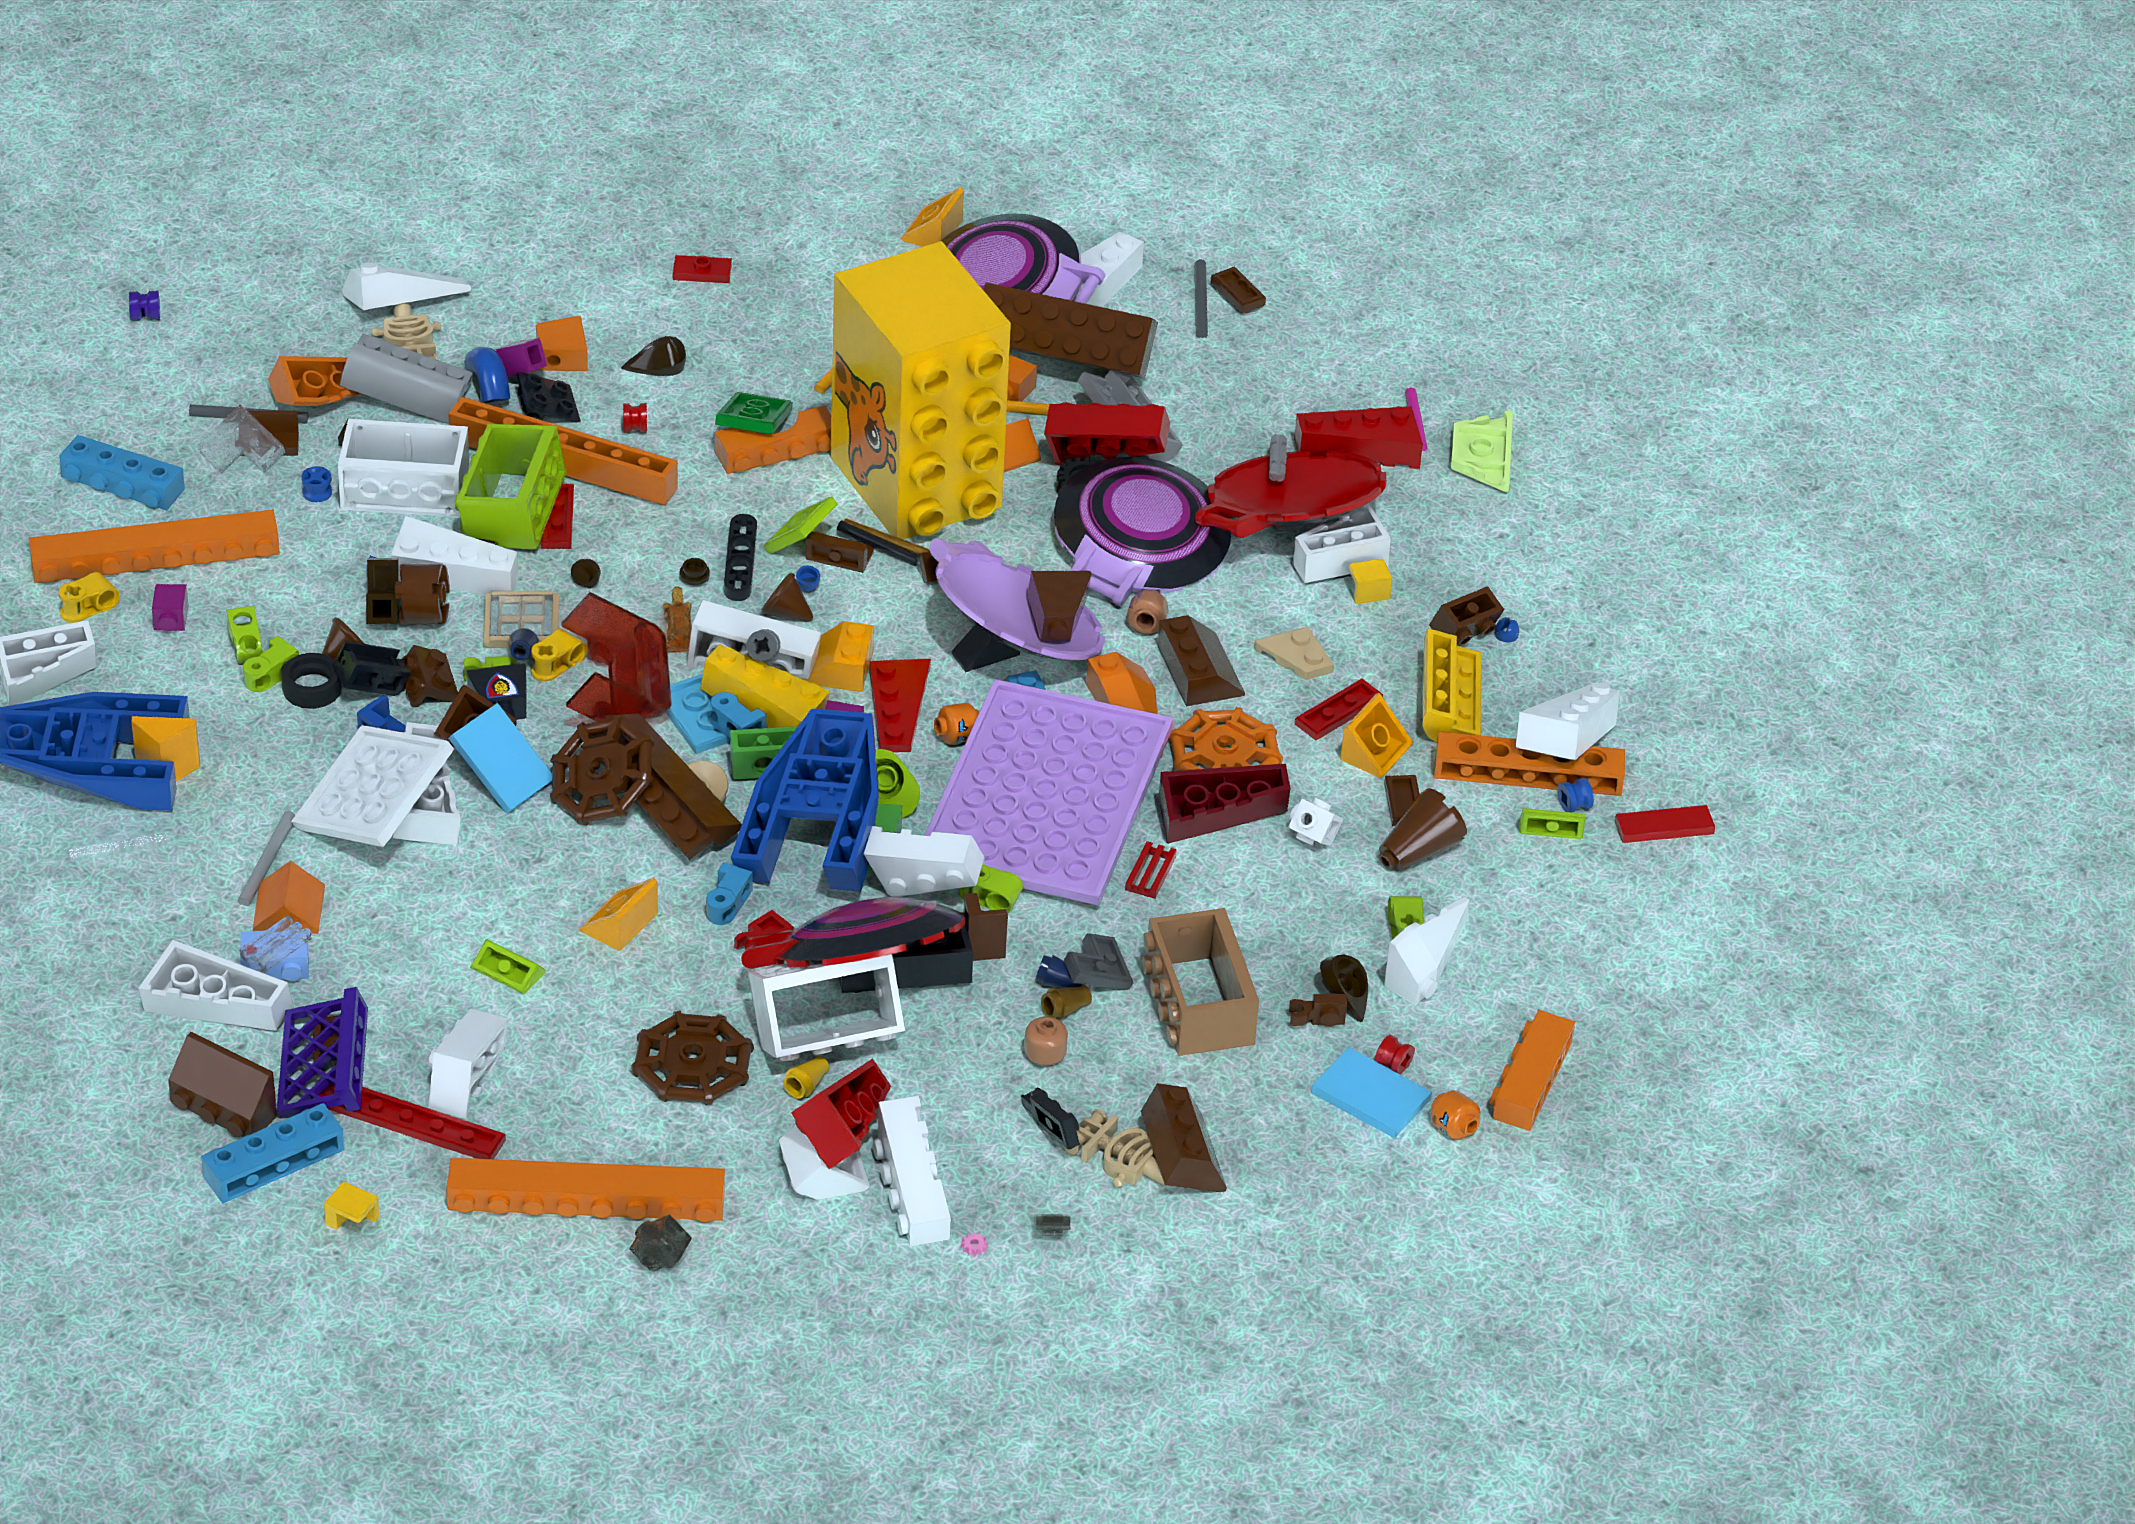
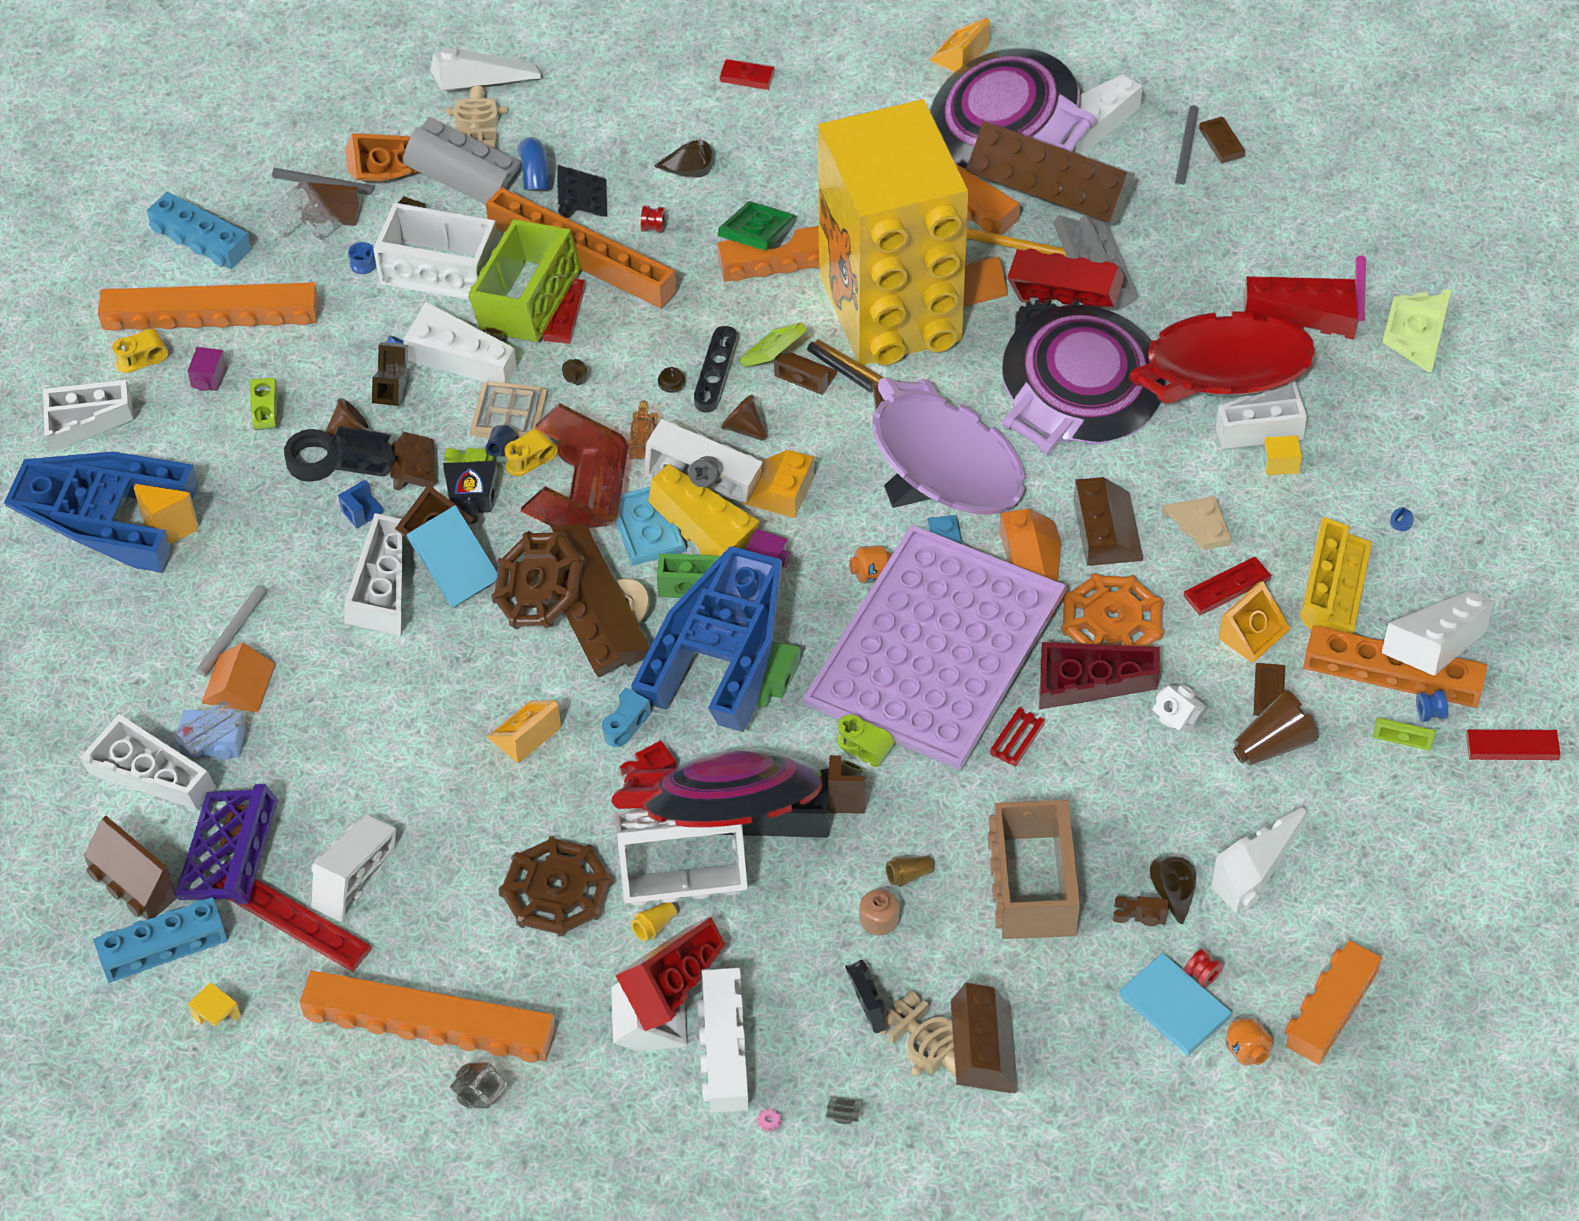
camera: 15 degrees right, 10 degrees up
(144, 305) = (258, 67): dark purple wheel -> none
(266, 670) = (272, 440): lime leg -> none
(372, 785) = (330, 575): white plate -> none
(423, 593) = (424, 380): reddish brown brick -> none
(507, 967) = (414, 769): lime slope -> none
(522, 356) = (565, 150): magenta brick -> none
(563, 344) = (602, 140): orange torso -> none
(731, 715) = (668, 537): dark azure leg -> none
(808, 578) = (769, 393): blue hinge -> none
(897, 700) = (823, 532): red wing -> none
(897, 782) = (796, 621): lime piece -> none
(923, 863) = (802, 712): white wedge -> none
(1054, 973) = (908, 839): dark blue cone -> none
(1057, 601) = (988, 449): reddish brown slope -> none
(1101, 965) = (951, 838): dark grey tile -> none
(1146, 610) = (1069, 464): nougat head -> none
(1277, 458) = (1222, 318): light grey axle -> none
(1404, 912) = (1244, 818): lime piece -> none
(1468, 615) = (1365, 504): reddish brown brick -> none

